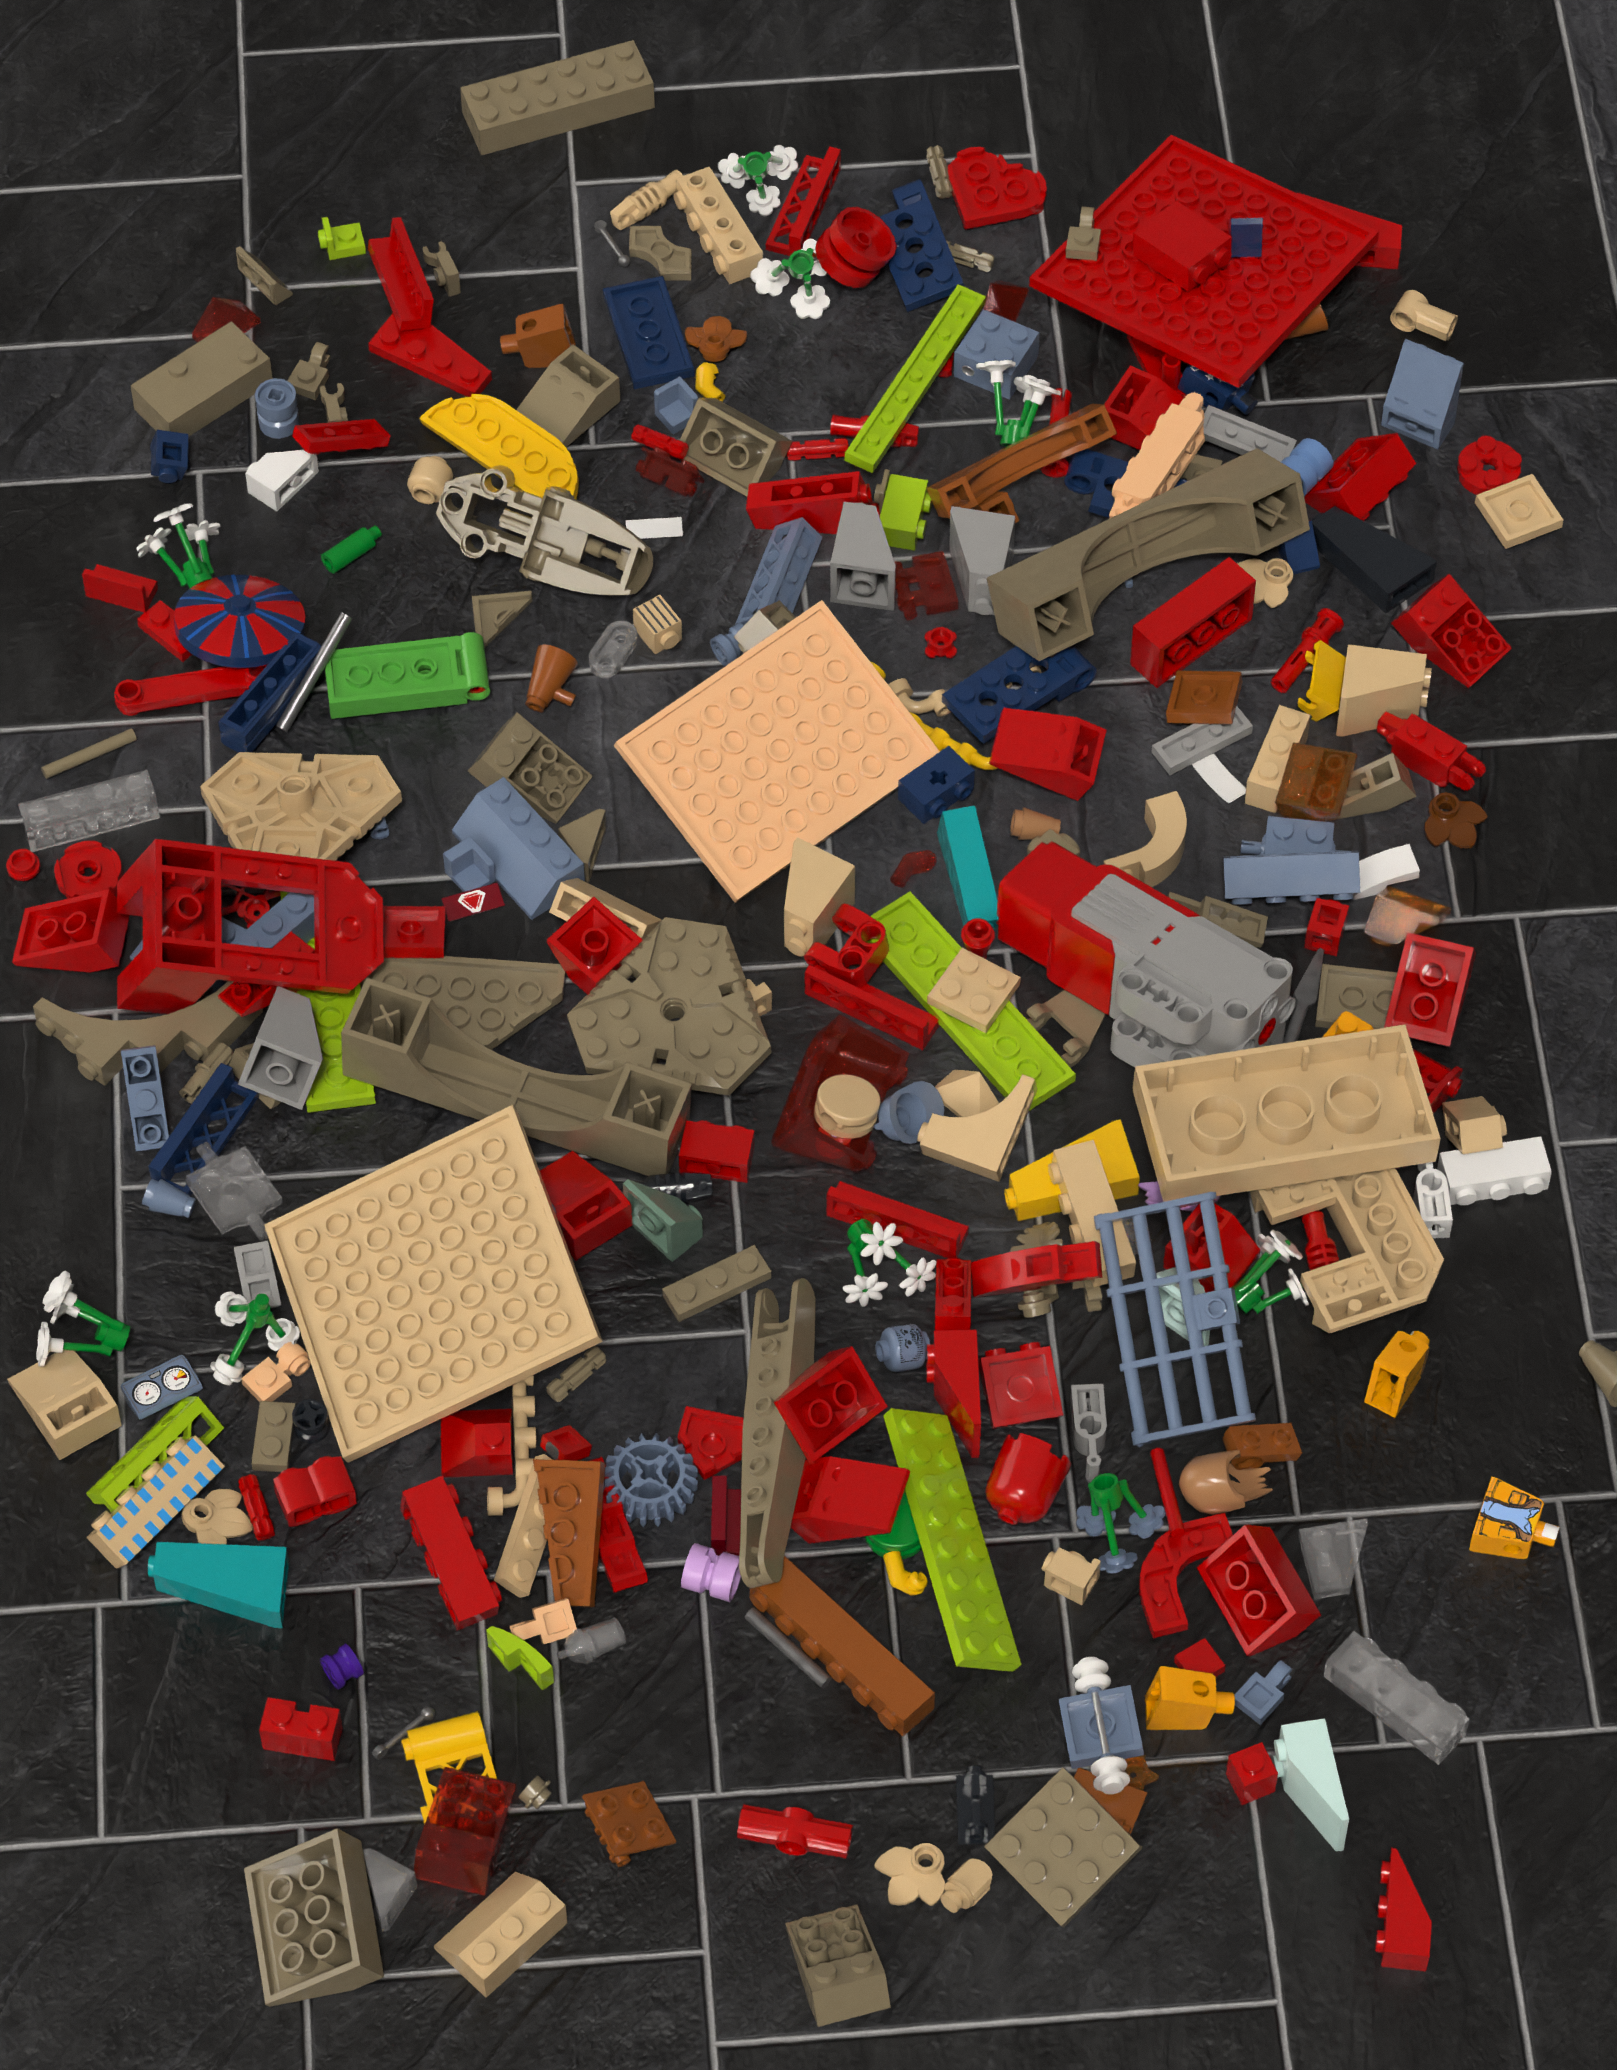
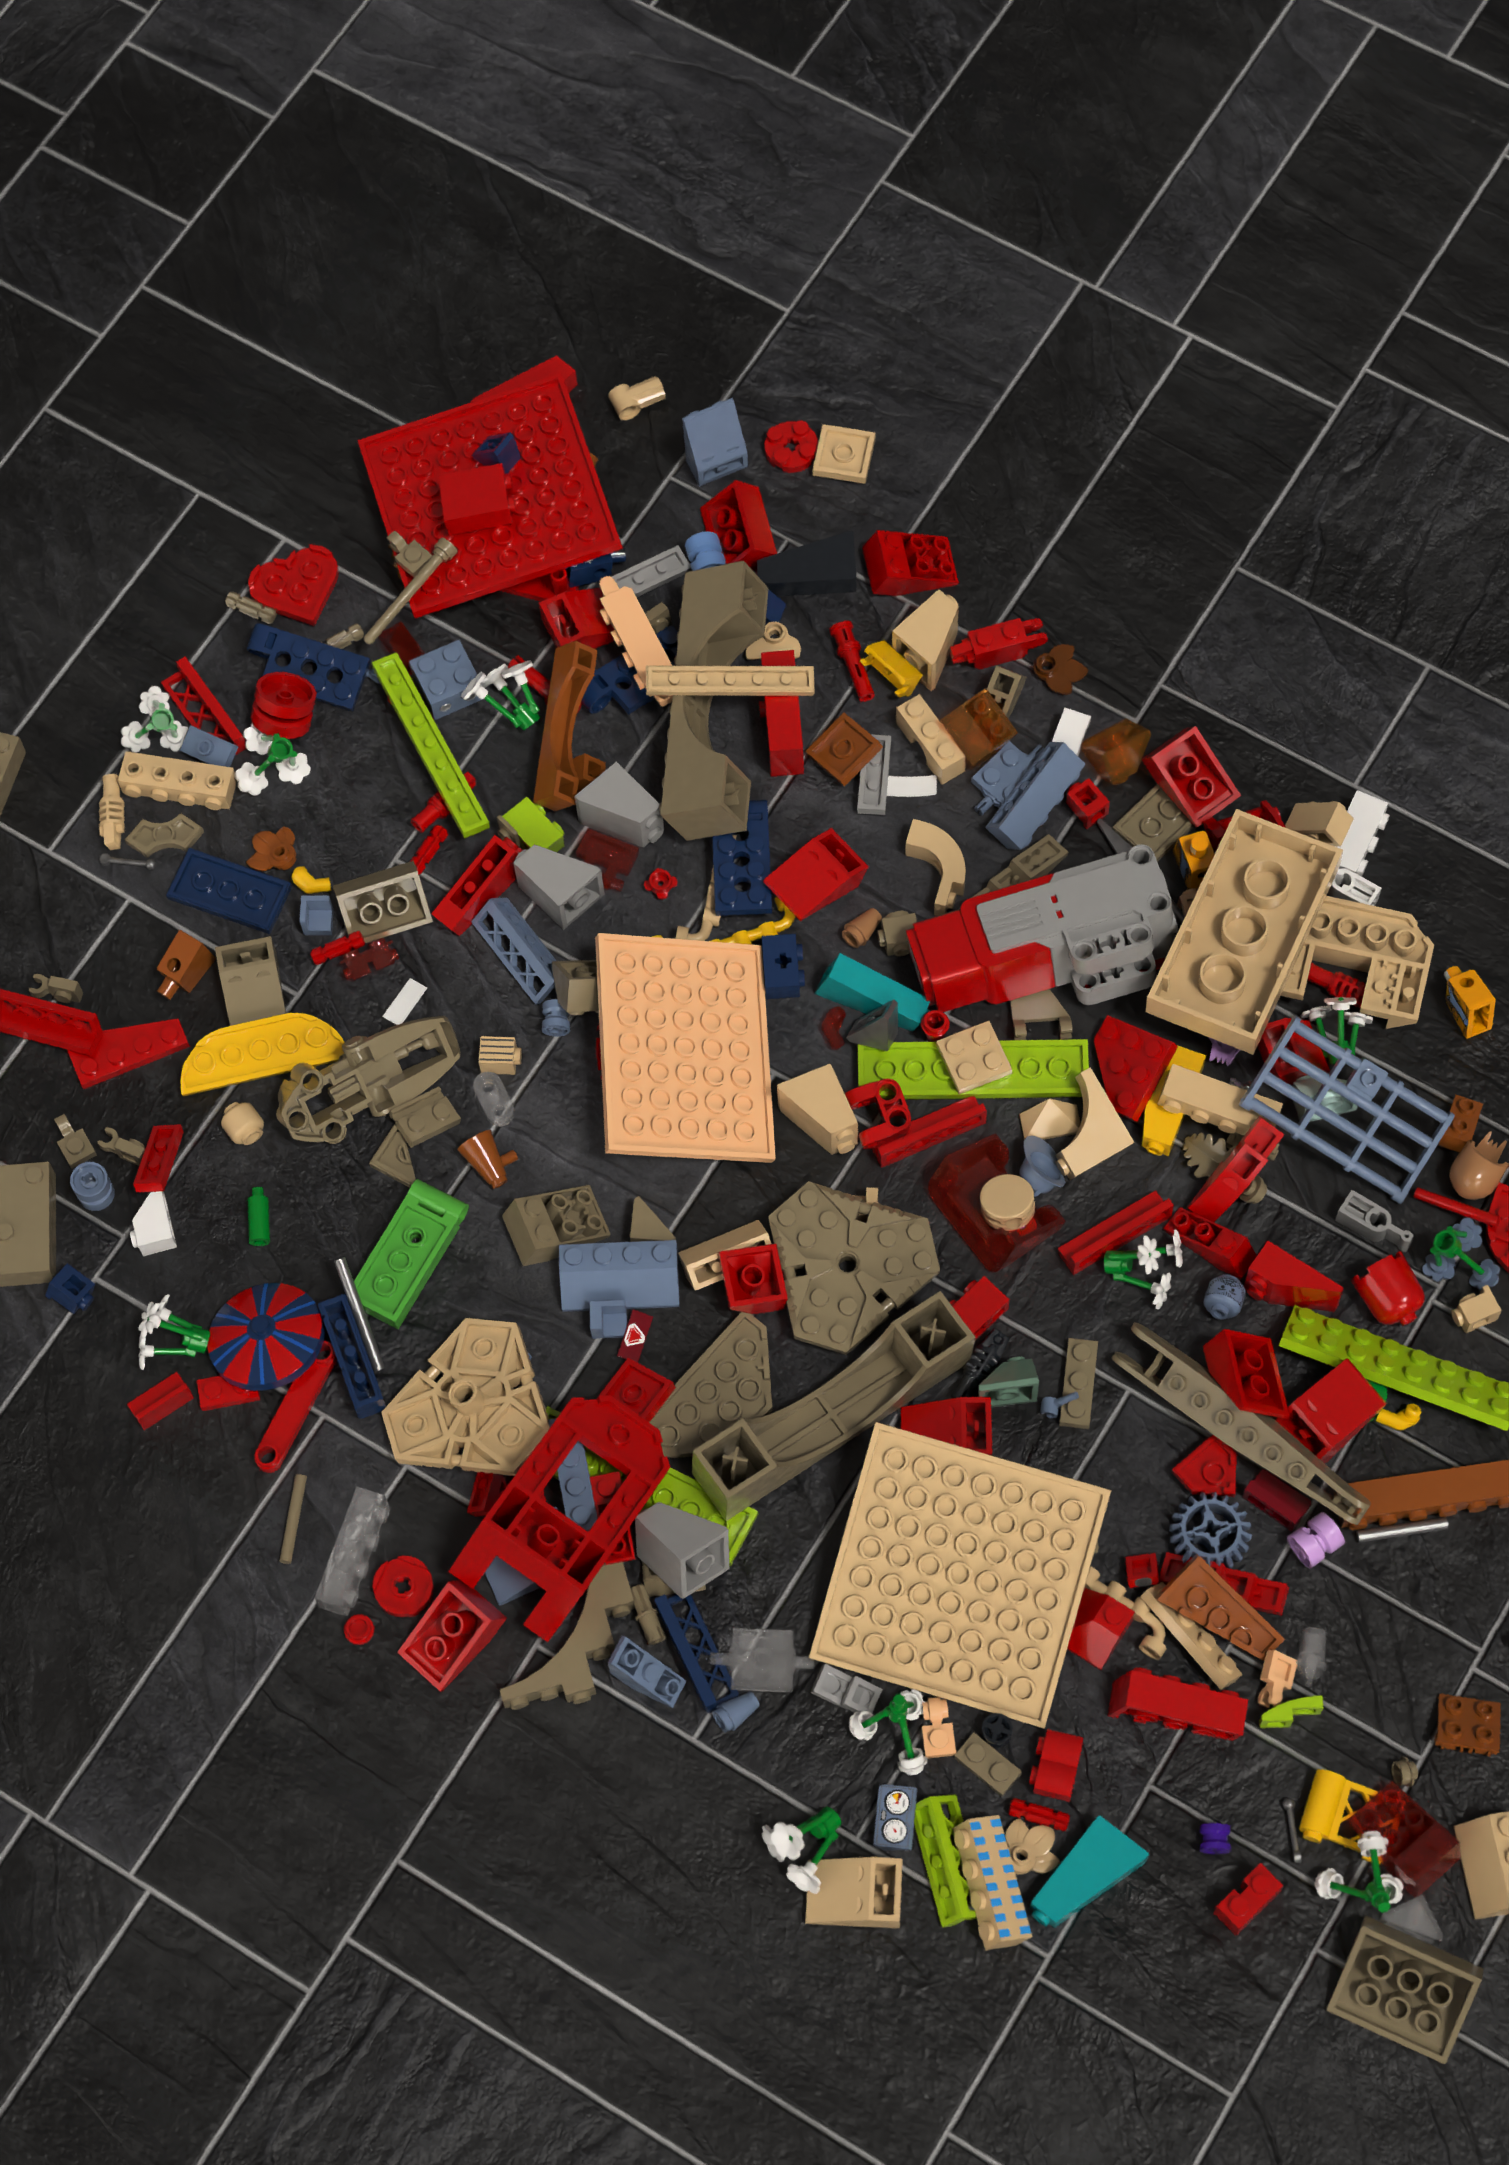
camera: 50 degrees left, 10 degrees up
(371, 1795) = (1383, 1888): none -> plant
(551, 608) = (425, 1117): none -> dark tan plate
(673, 1272) = (1050, 1405): none -> sand blue hand
(770, 226) = (208, 747): none -> sand blue plate
(936, 895) = (876, 1028): none -> flat silver slope
(1020, 1385) = (1311, 1238): red plate -> none
(1080, 1116) = (1131, 1064): none -> red plate
(1106, 257) = (443, 551): none -> dark tan piece
(1173, 546) = (730, 680): none -> tan tile

